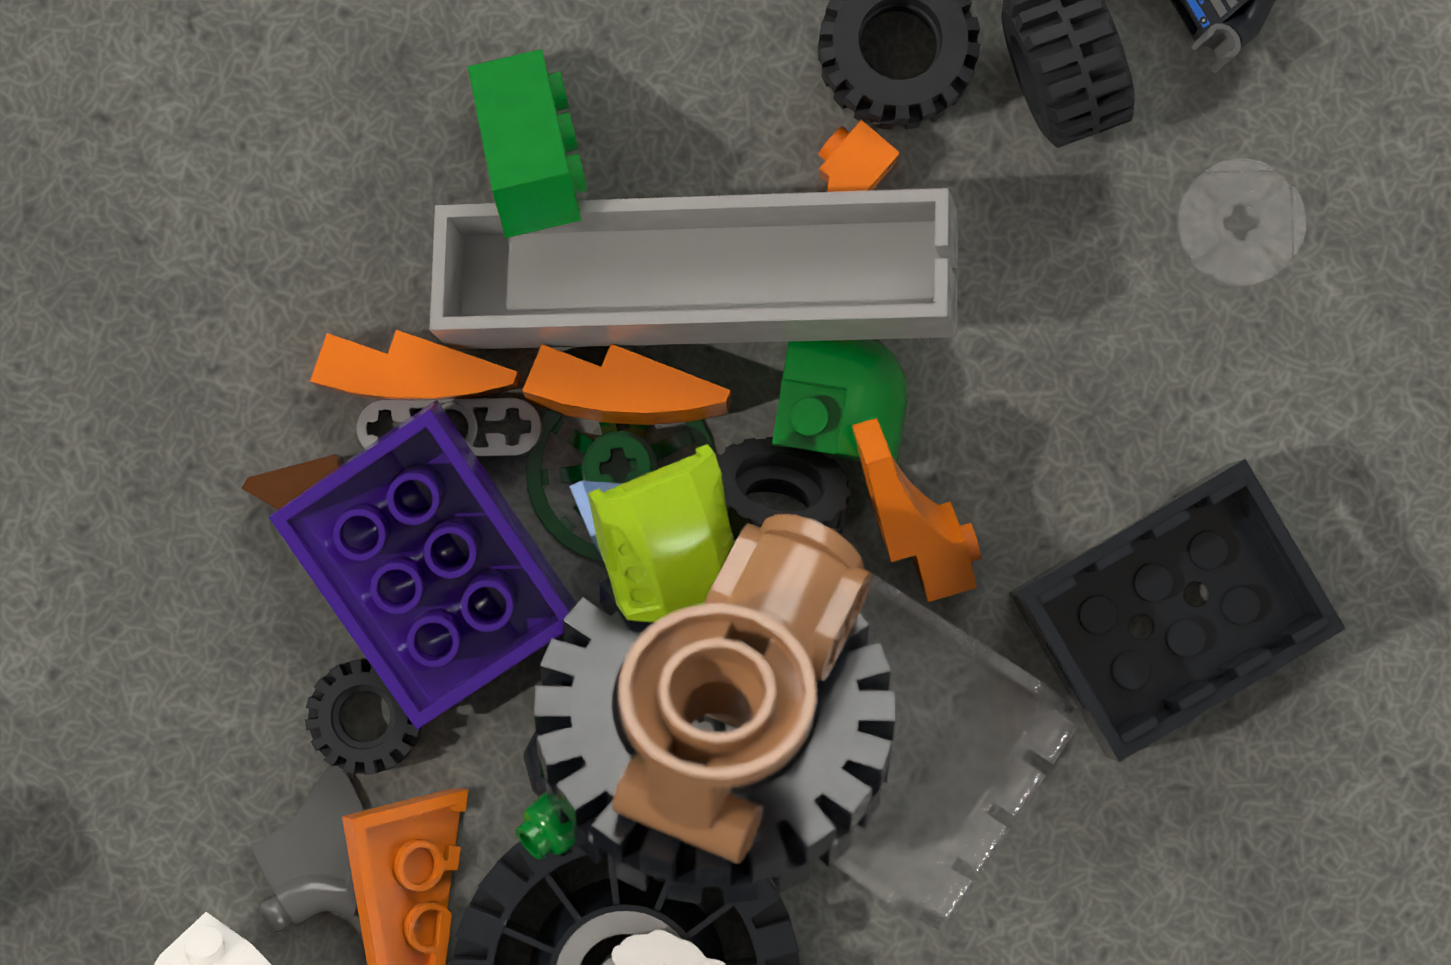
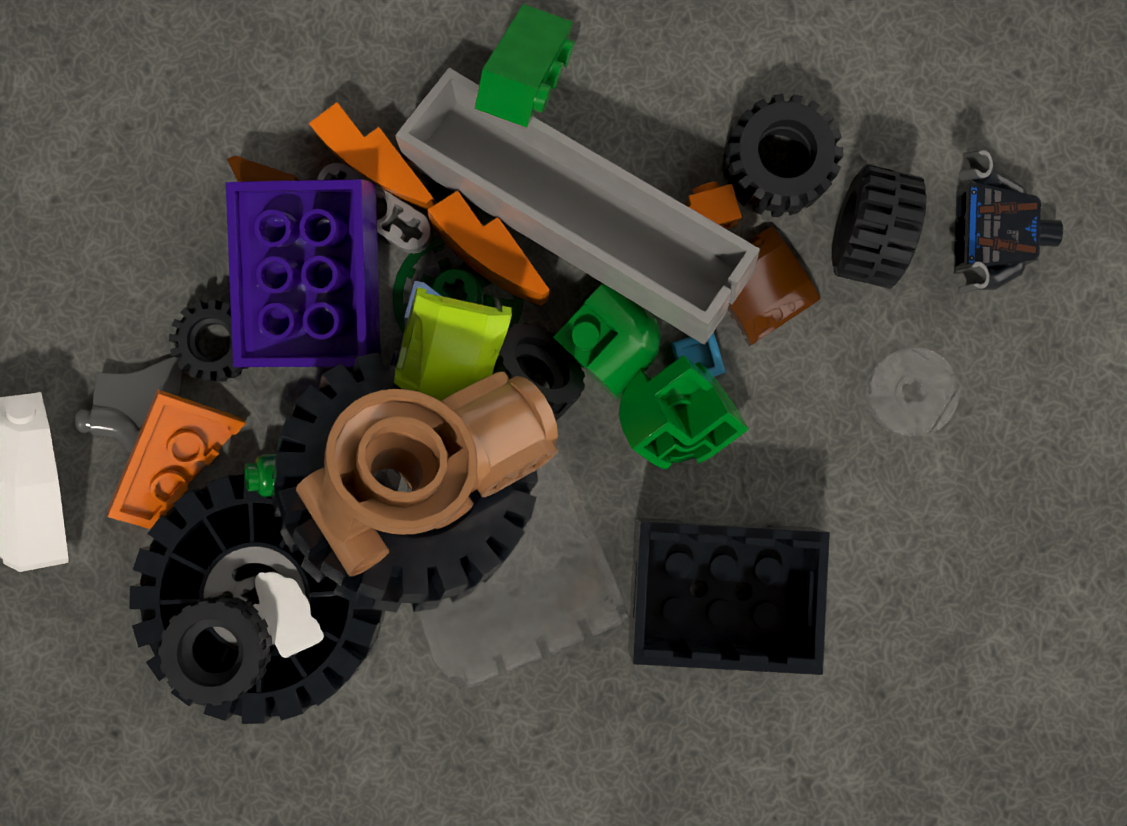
camera: 25 degrees right, 0 degrees up
(915, 523) = (605, 440): orange slope -> none
(958, 358) = (695, 351): none -> dark azure tile
(980, 436) = (678, 415): none -> green brick
(996, 207) = (774, 291): none -> reddish brown slope

